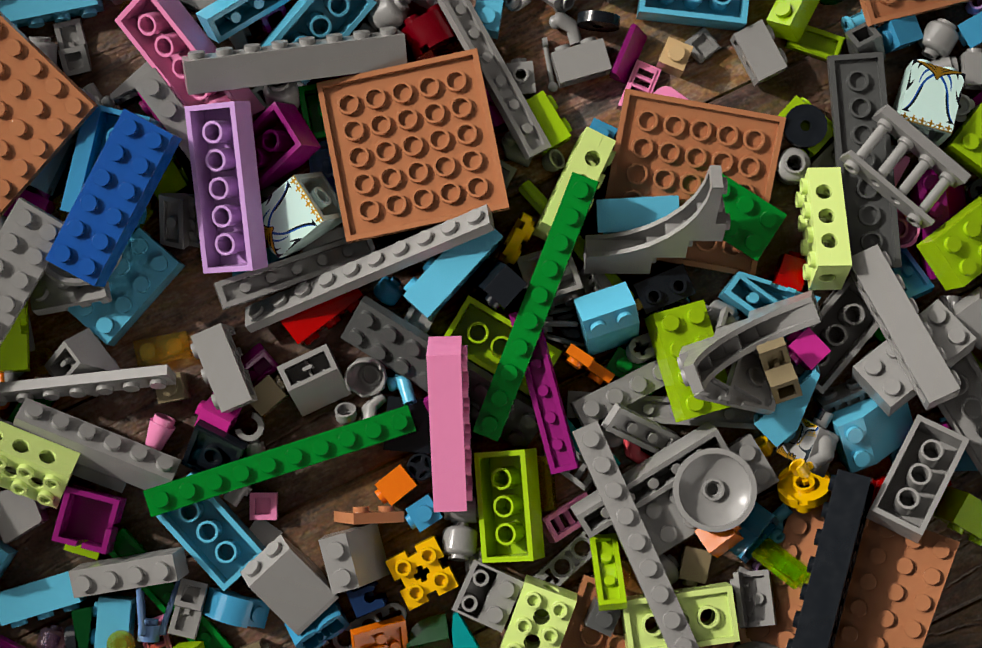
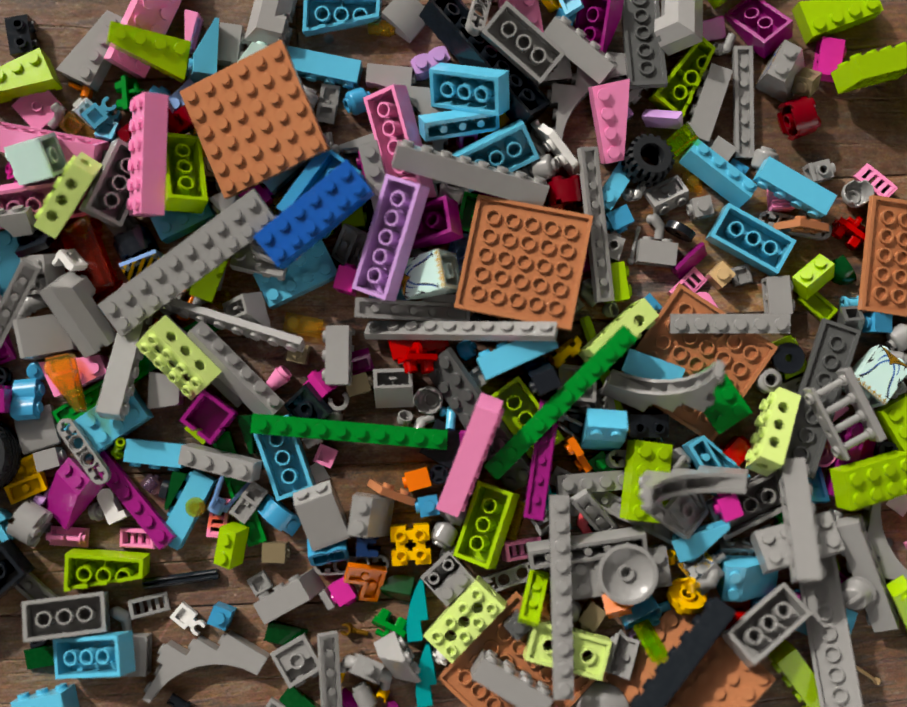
camera: 30 degrees right, 0 degrees up
(106, 30) = (354, 101): none -> dark azure head
(139, 508) = (245, 426): none -> dark green slope
(190, 266) = (345, 278): none -> dark pink brick
(327, 325) = (414, 356): none -> red hips
(514, 39) = (619, 219): none -> dark azure brick
(711, 113) = (730, 323): none -> light grey plate
(779, 370) = (704, 514): dark tan brick -> none

